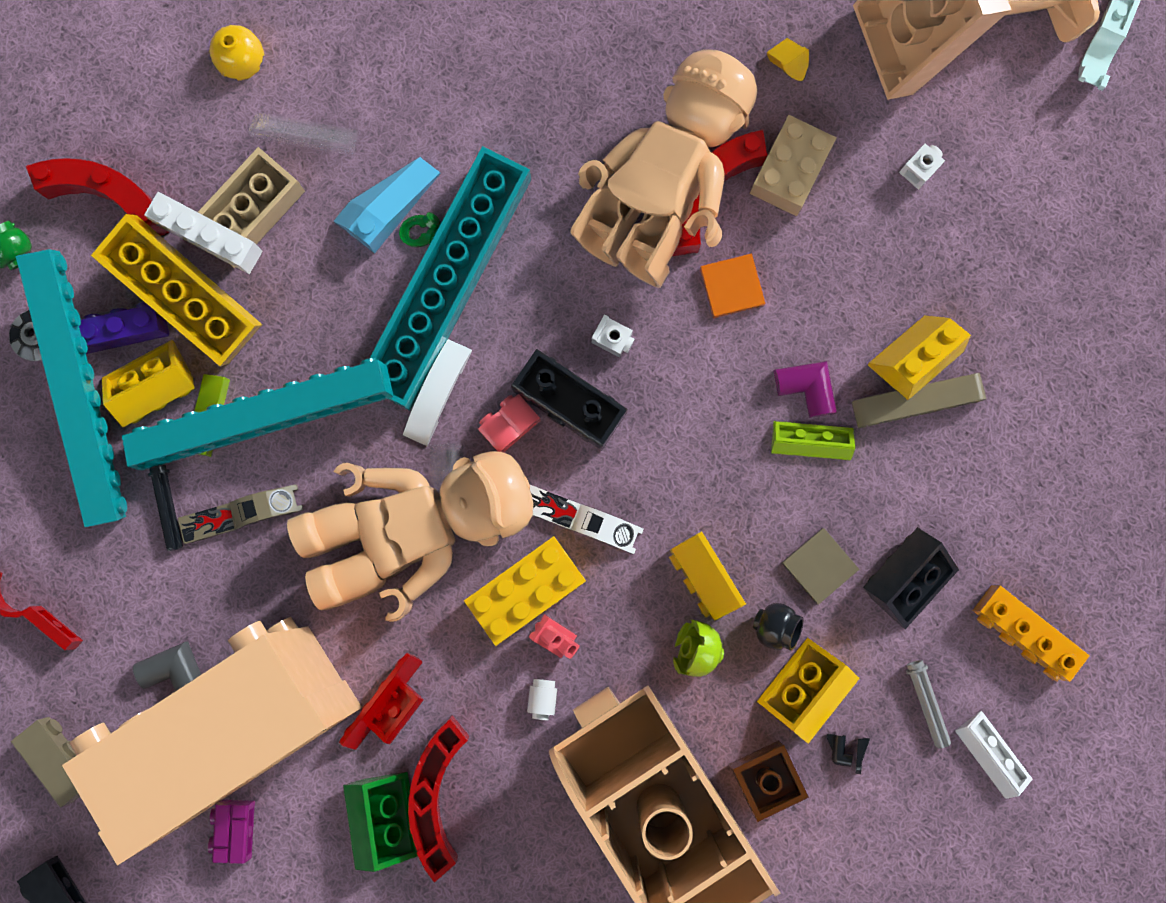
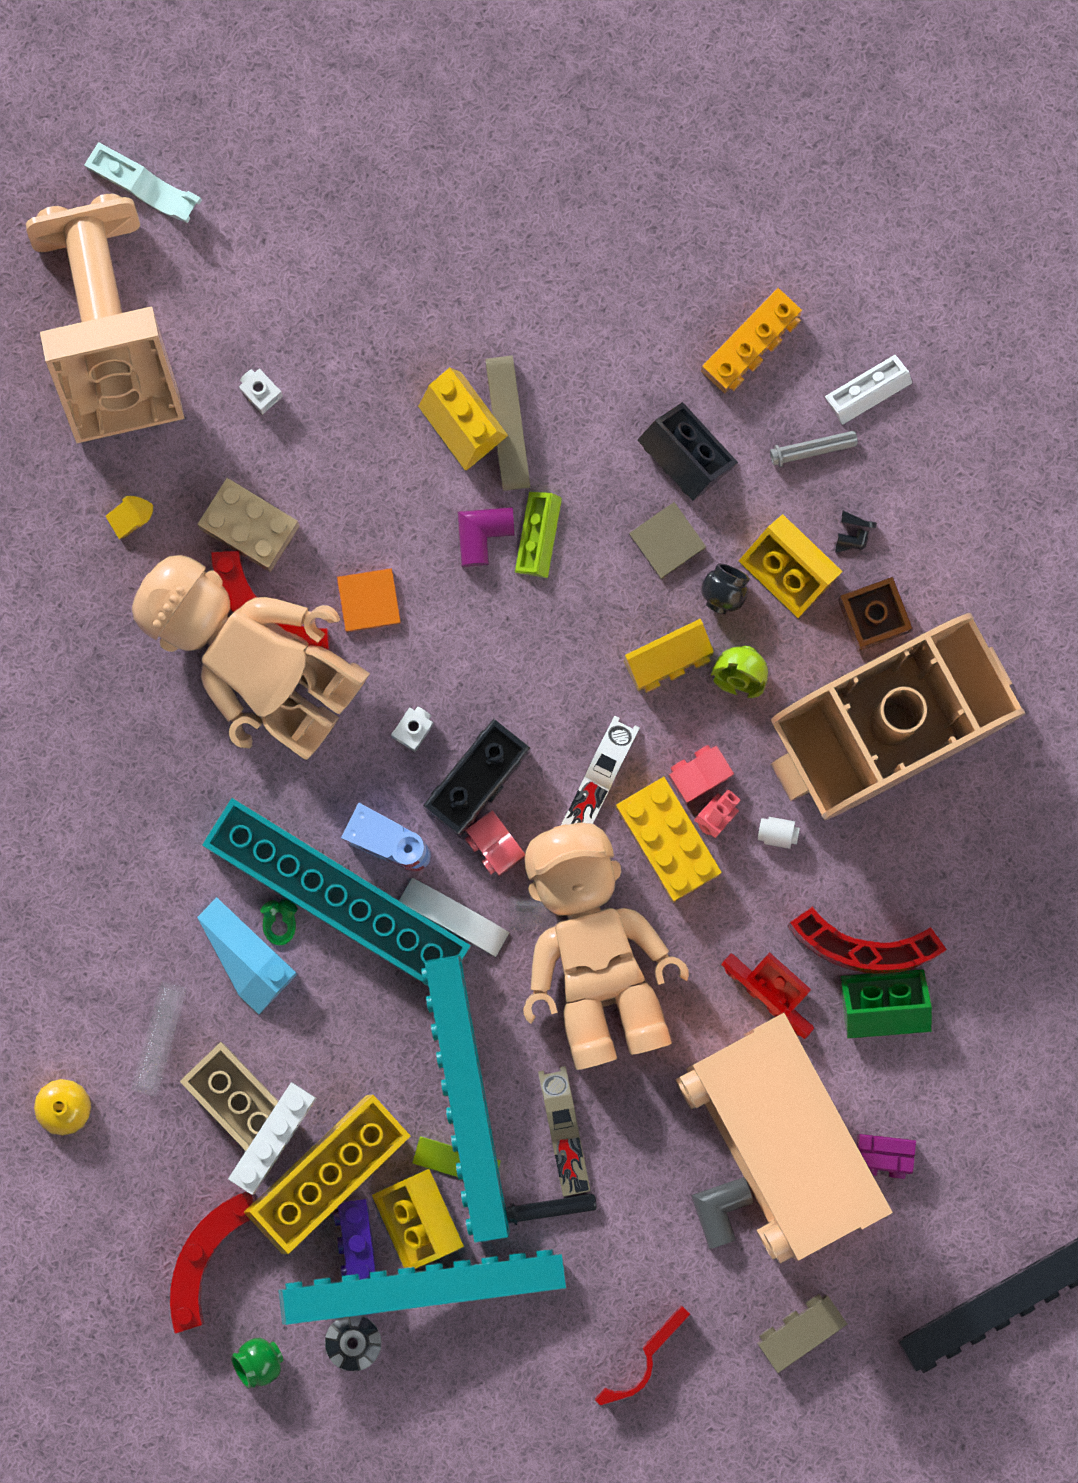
camera: 90 degrees left, 0 degrees up
(502, 318) = (386, 839): none -> light blue piece
(592, 617) = (700, 774): none -> coral brick

